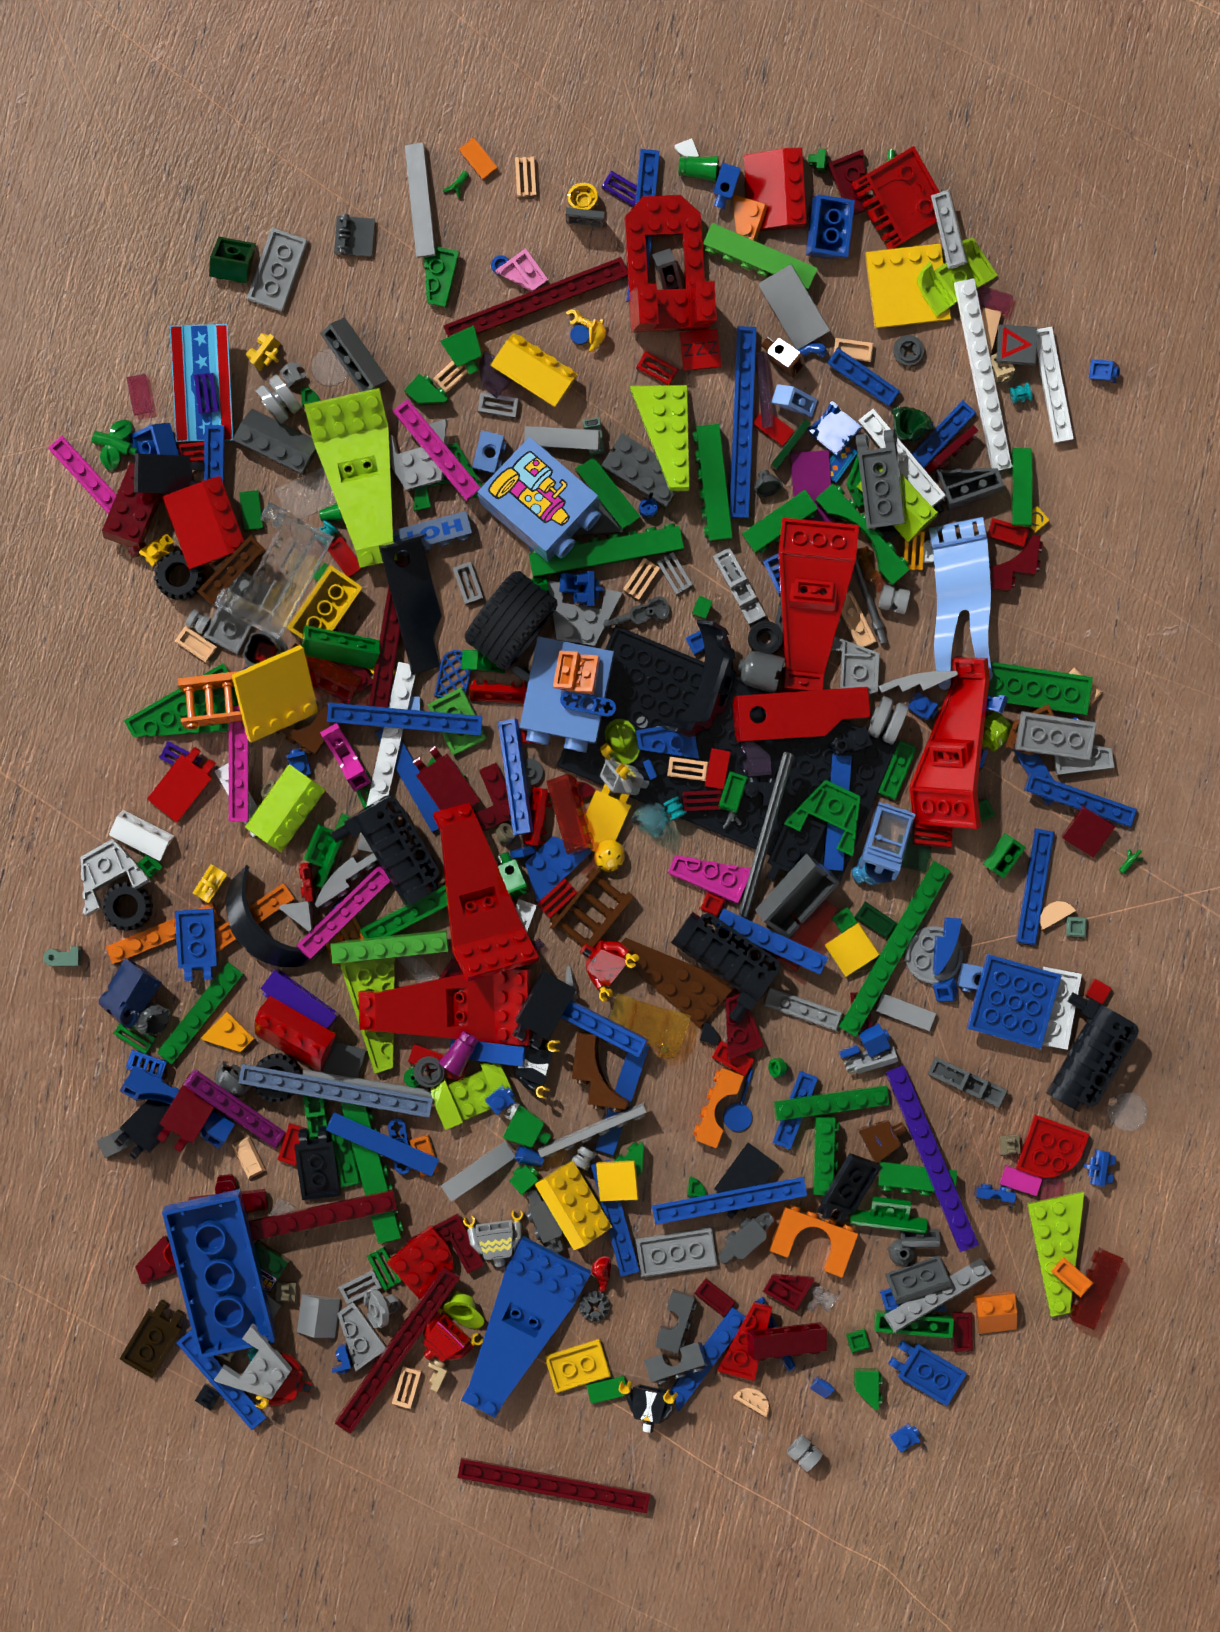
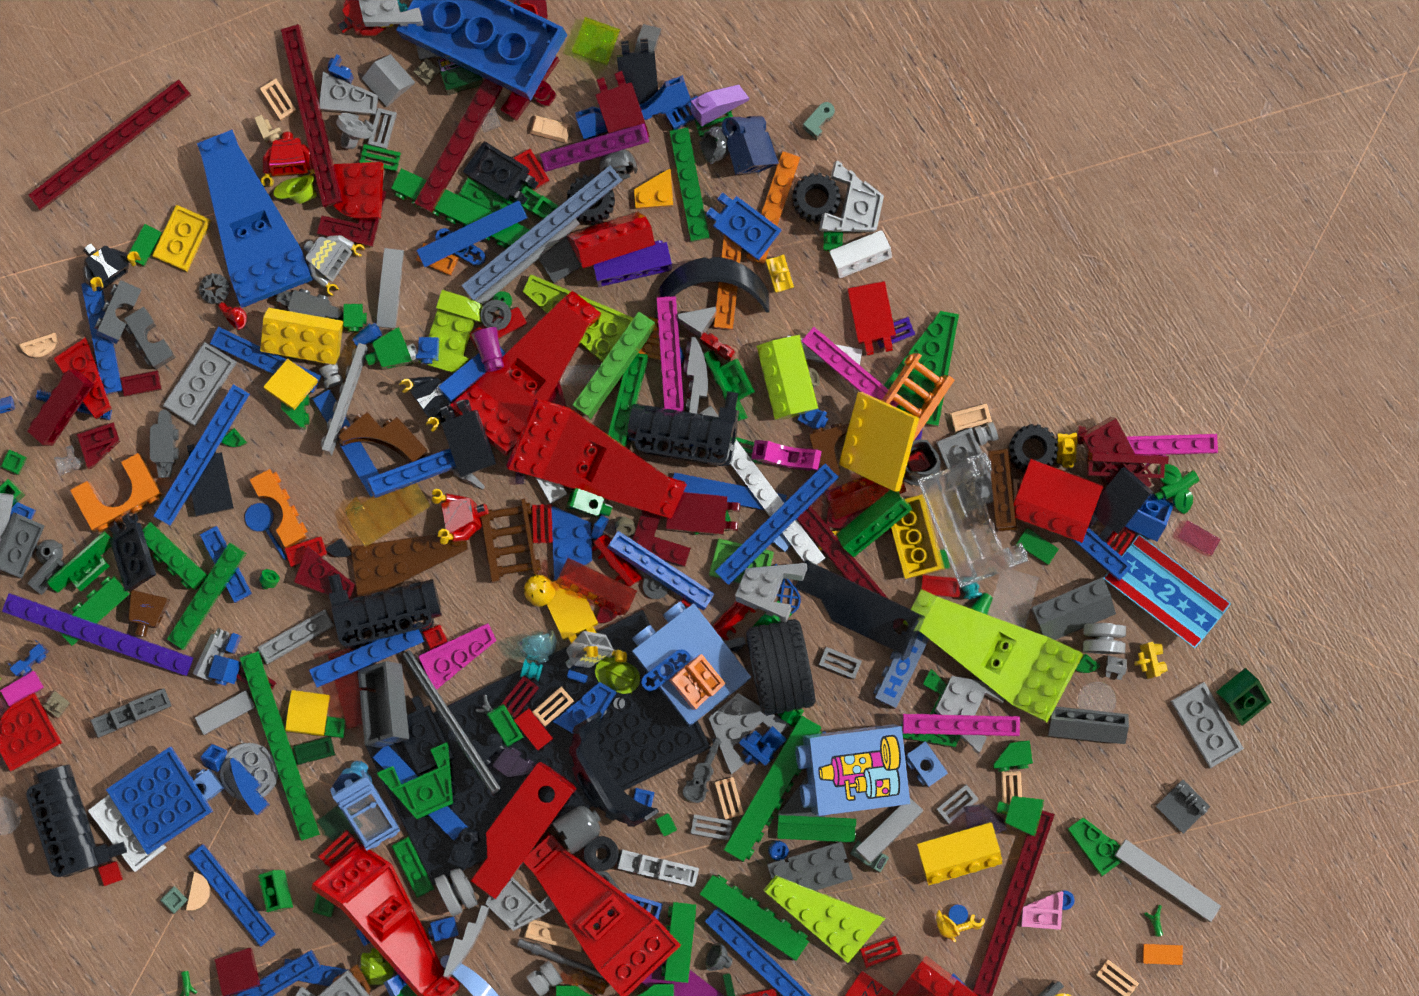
camera: 135 degrees right, 5 degrees down
(118, 1045) = (717, 103): none -> medium lavender slope
(127, 495) = (1129, 458): none -> dark red fence
(149, 1182) = (596, 41): none -> clear neon green plate
(206, 396) = (1142, 579): dark purple tile -> none
(462, 689) = (762, 584): none -> light grey wing

